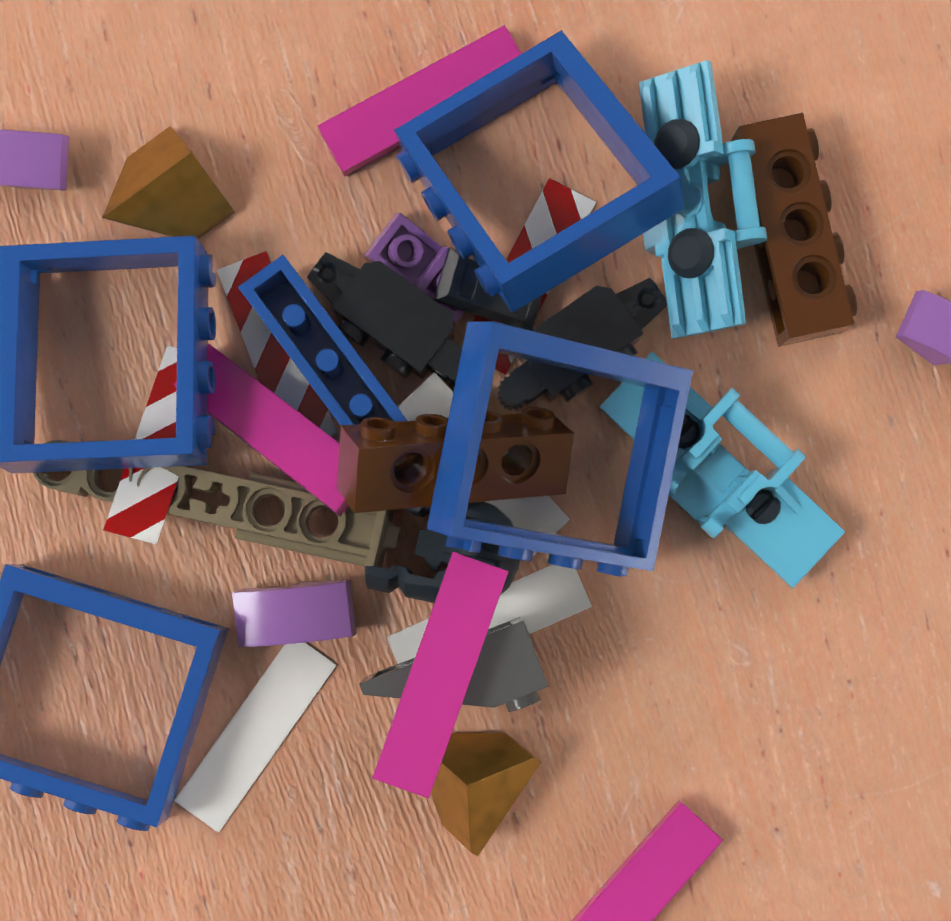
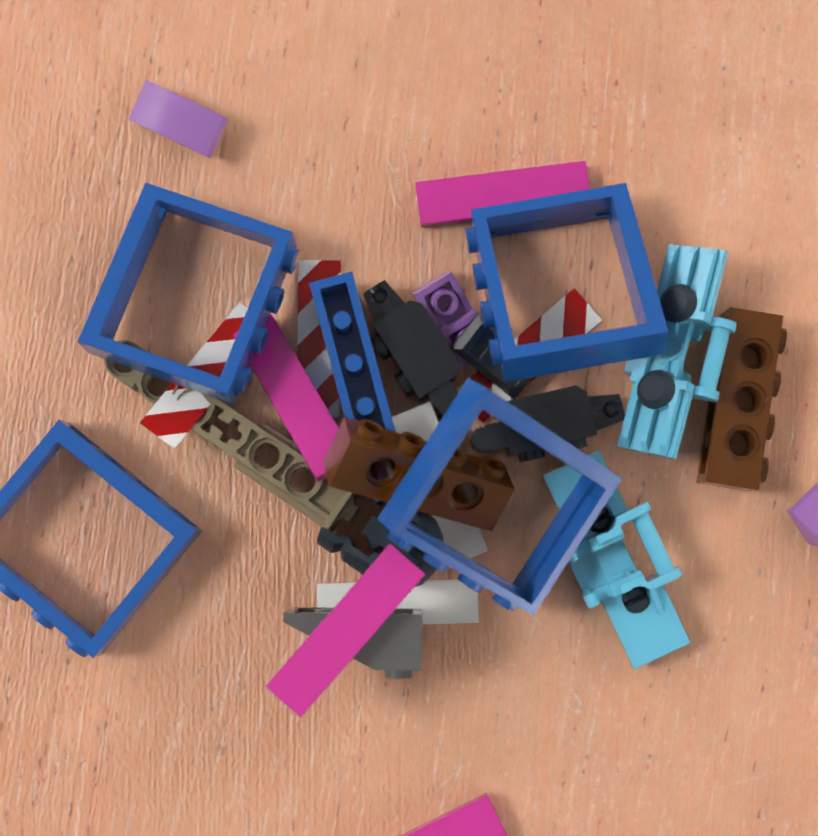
camera: 25 degrees right, 0 degrees up
(167, 191) = (284, 187): pearl gold slope -> none
(255, 734) = (191, 616): white sticker -> none
(294, 613) = (255, 540): medium lavender slope -> none
(480, 784) = (343, 721): pearl gold slope -> none

